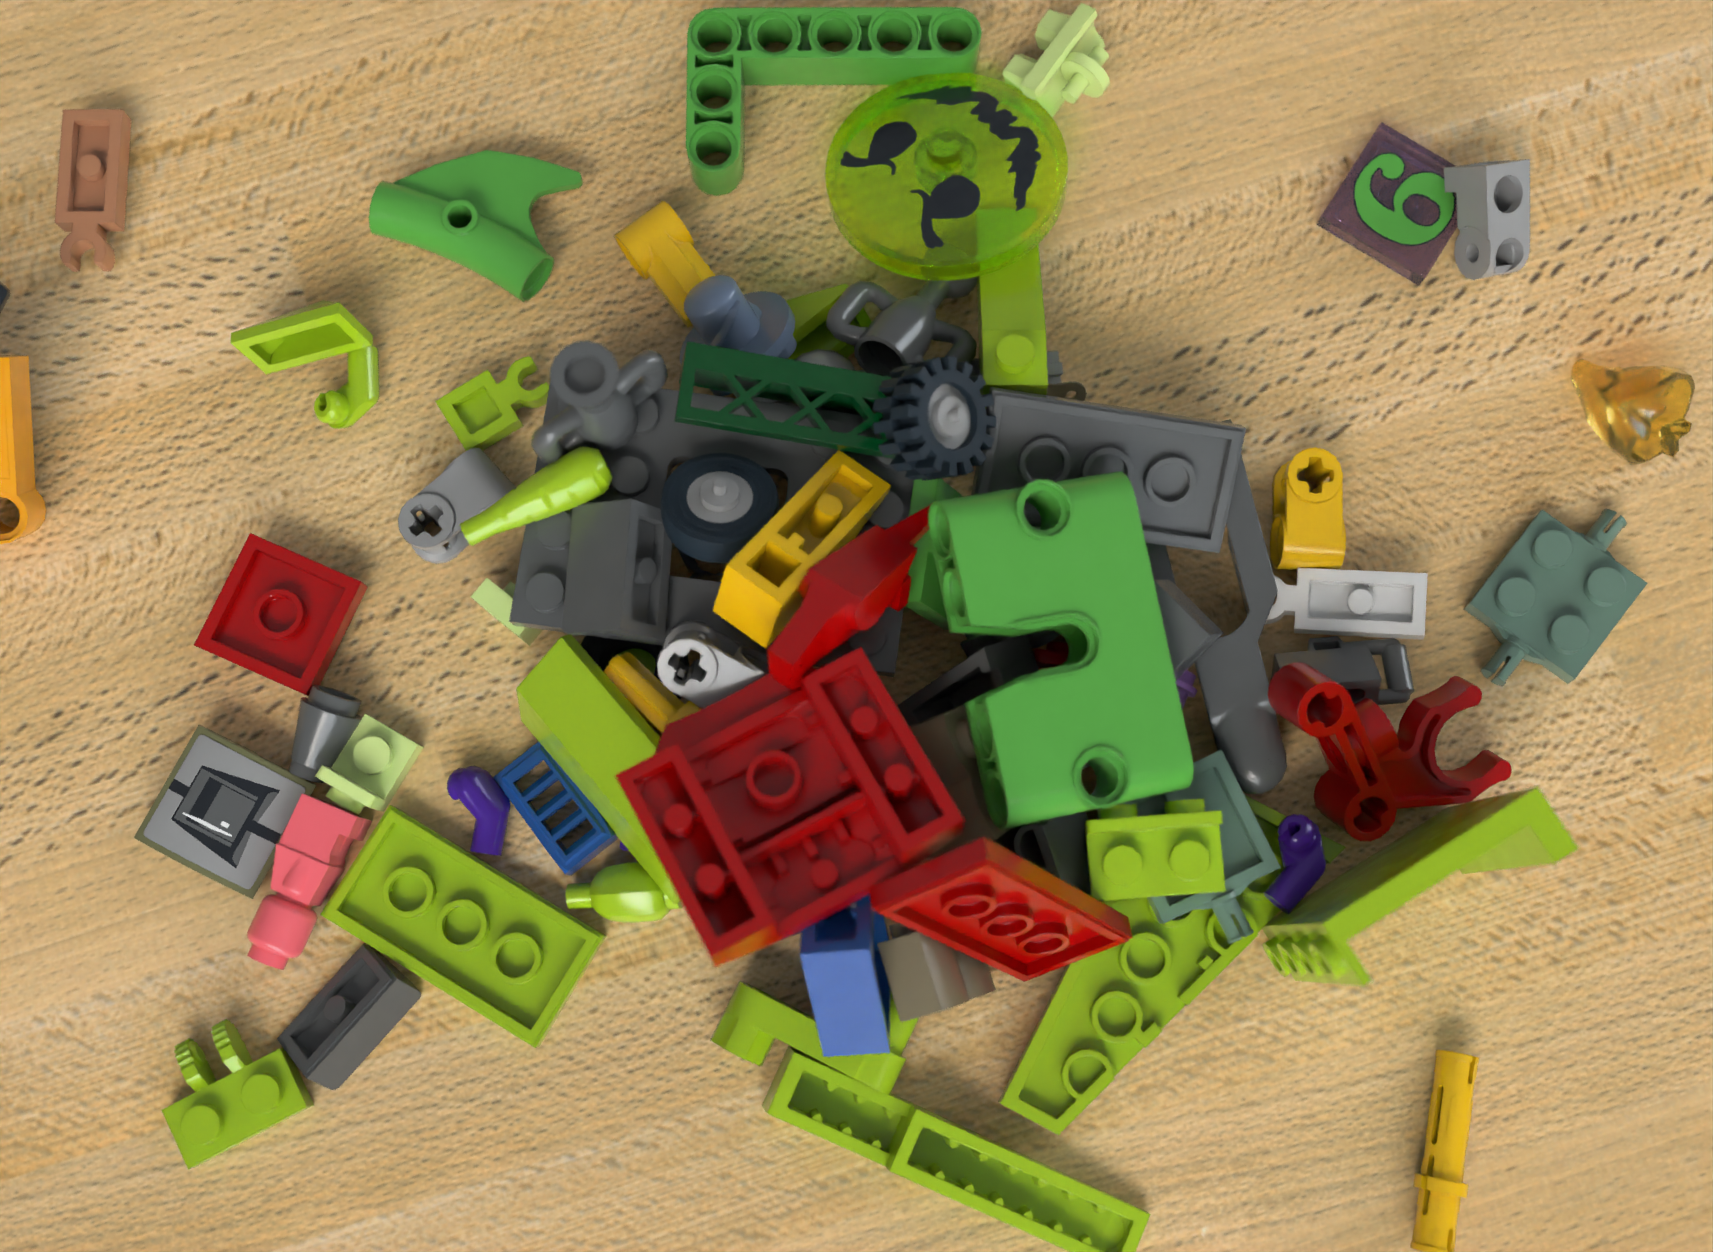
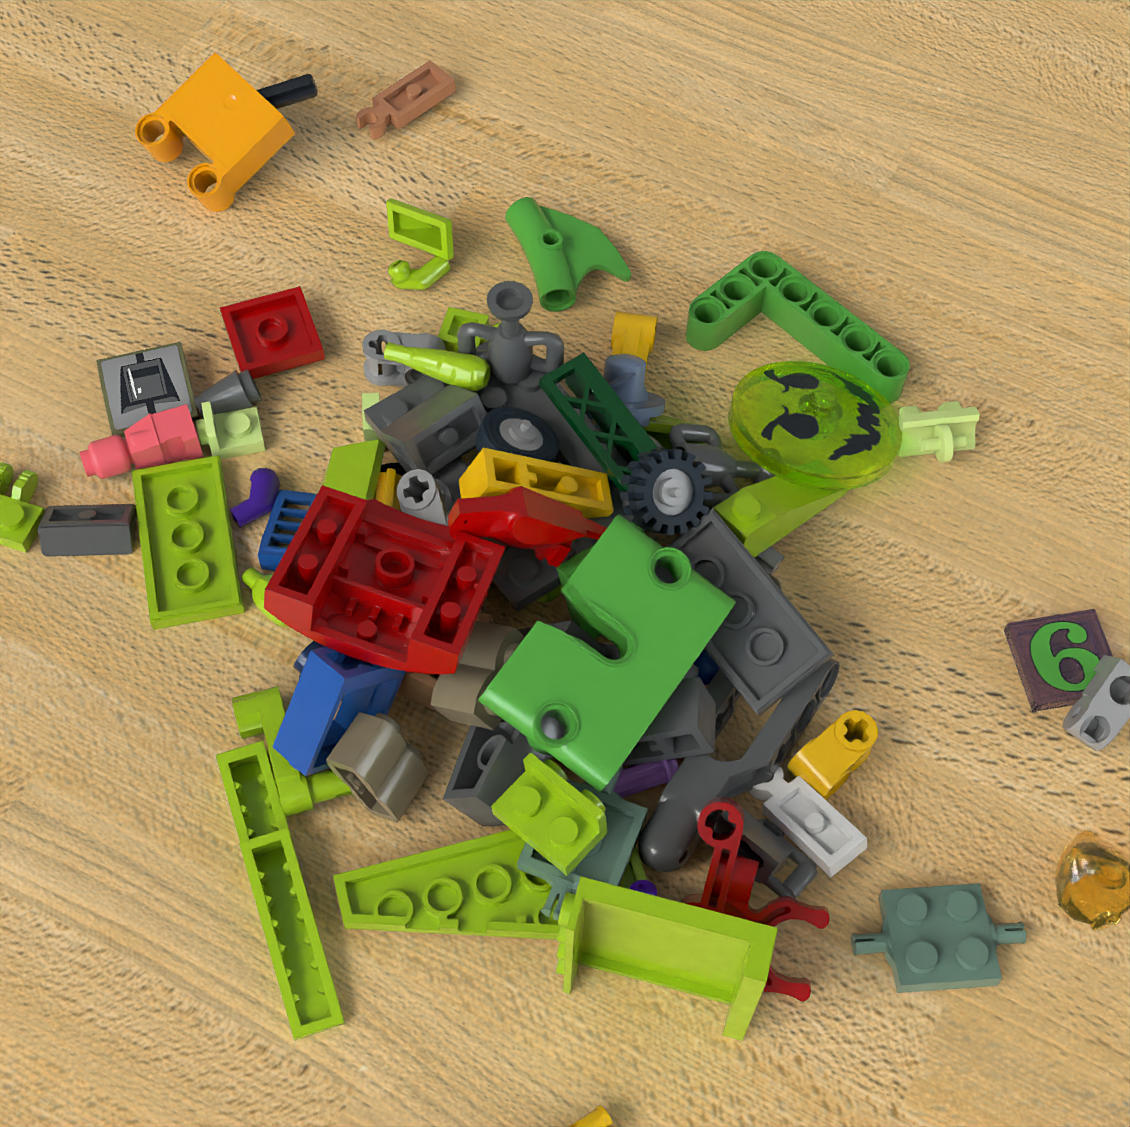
camera: 45 degrees right, 20 degrees down
(1000, 910) = (436, 752): red tile -> none

